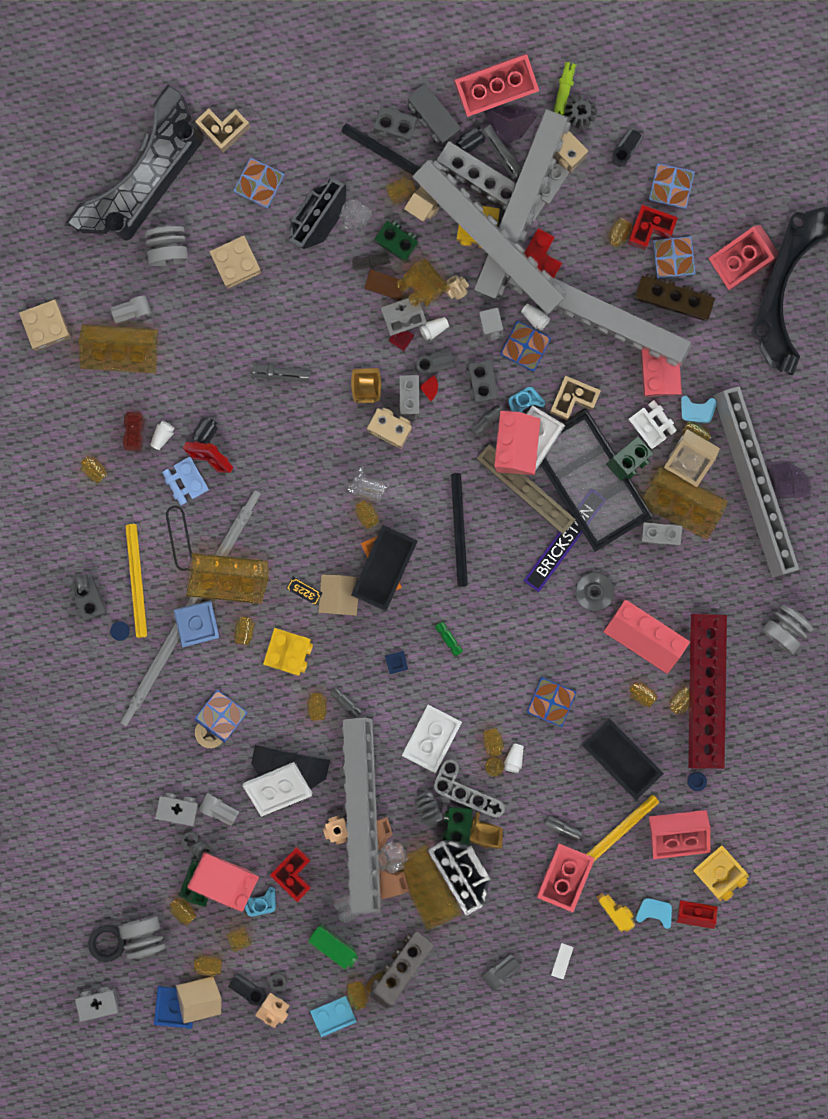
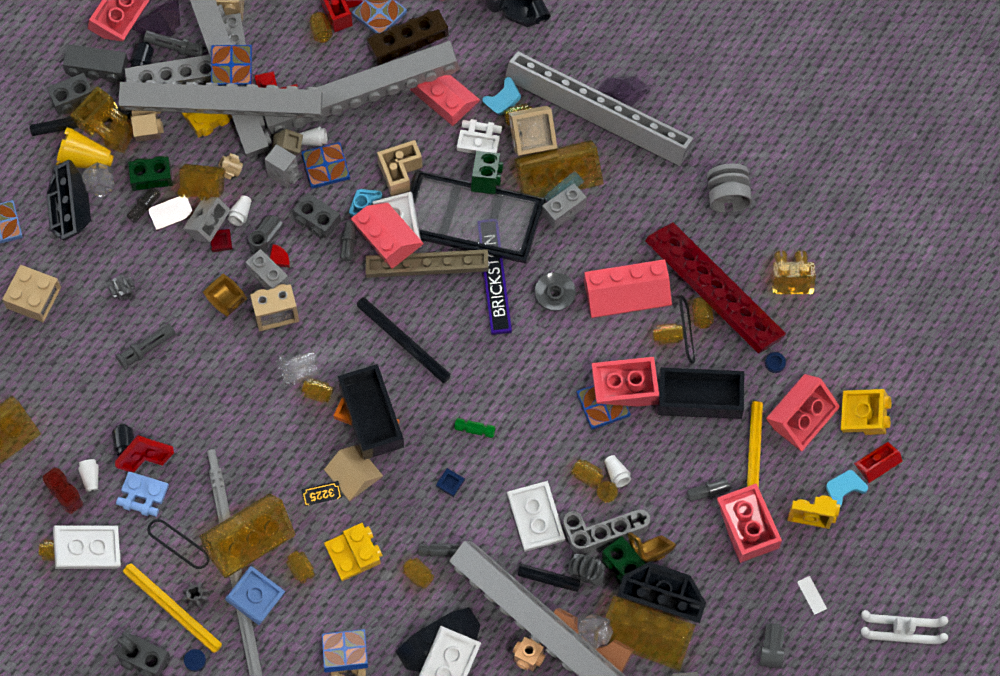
camera: 45 degrees left, 20 degrees down
(115, 487) = (86, 547): none -> white tile
(163, 589) = (197, 601): none -> flat silver gear
(301, 314) = (122, 287): none -> flat silver gear
(362, 182) = (82, 151): none -> yellow cone
(395, 160) = (95, 111): none -> clear yellow brick
(400, 788) = (549, 577): none -> black axle
(511, 307) = (289, 141): none -> dark tan brick
(520, 216) = (231, 64): none -> tile
(577, 704) = (626, 382): none -> coral slope
(599, 1040) = (904, 628): none -> white piece
(653, 705) = (684, 328): none -> black piece
(684, 522) = (571, 179): none -> clear light blue tile
(768, 734) = (793, 276): none -> clear yellow brick

